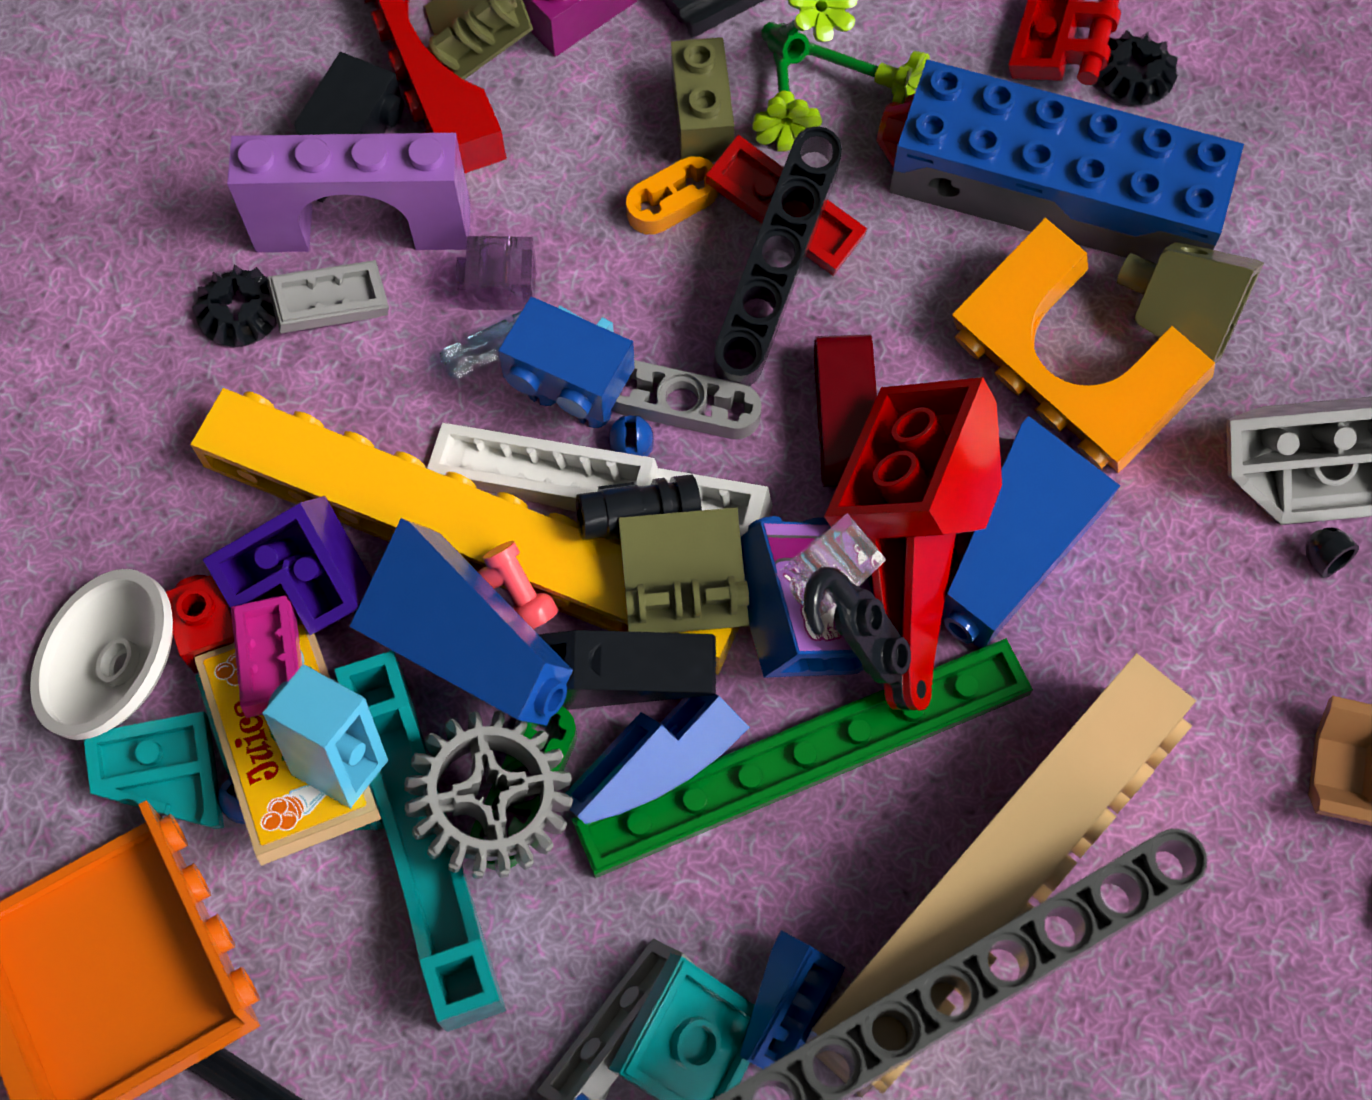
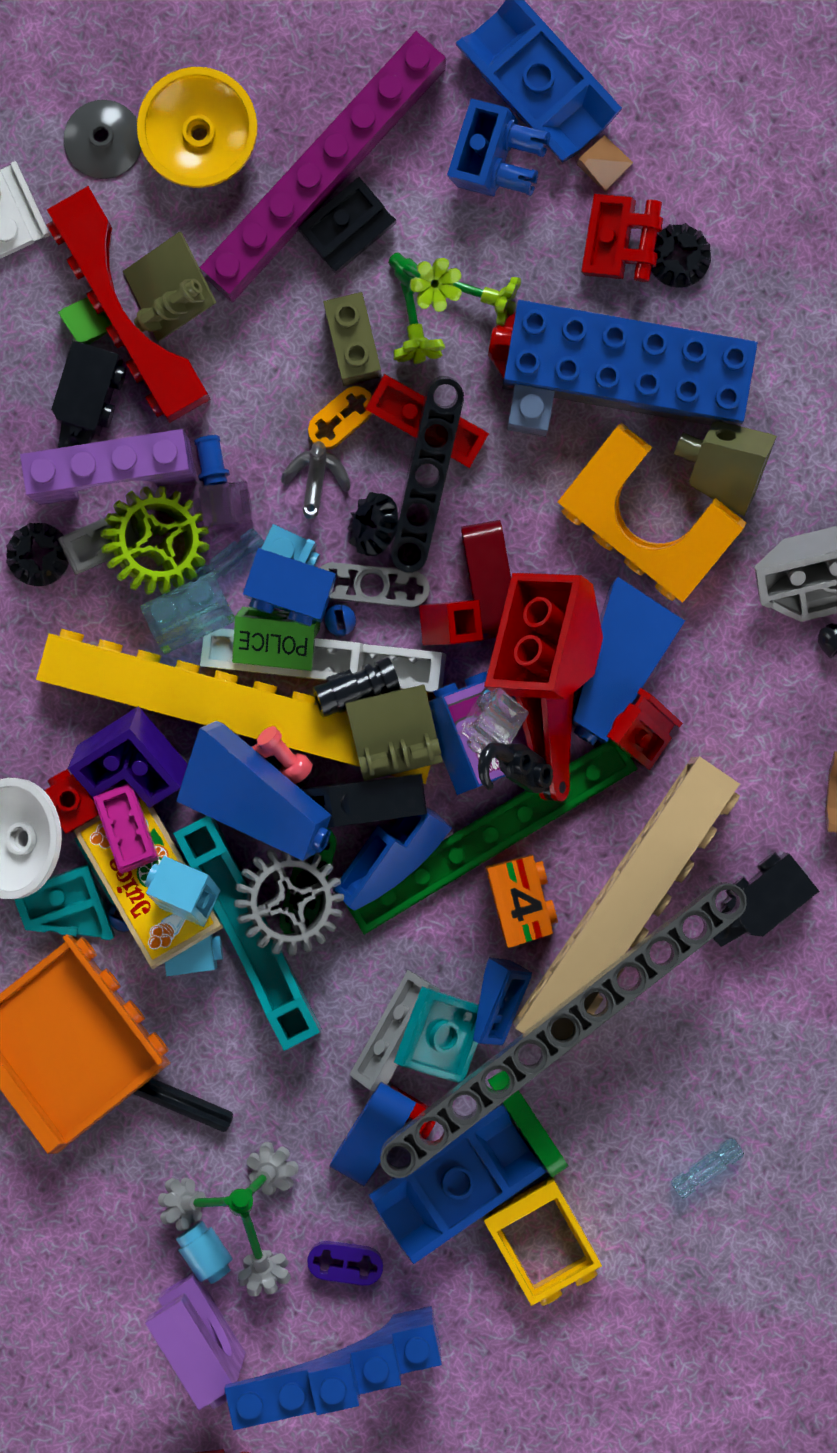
camera: 10 degrees left, 20 degrees up
(332, 867) = (197, 958): none -> medium azure brick
(361, 42) = (84, 321): none -> bright green slope
(385, 311) = (146, 525): none -> lime gear
(421, 392) = (188, 613): none -> clear light blue brick
(491, 212) = (211, 460): none -> blue pin
(535, 441) = (273, 640): none -> bright green panel
(628, 242) = (317, 459): none -> flat silver piece
(695, 317) = (384, 513): none -> black gear
(785, 448) = (451, 622): none -> red brick
(838, 847) = (520, 900): none -> orange slope
(925, 208) = (530, 410): none -> sand blue brick
(1050, 624) = (644, 729): none -> red plate
(1236, 894) = (770, 897): none -> black hinge

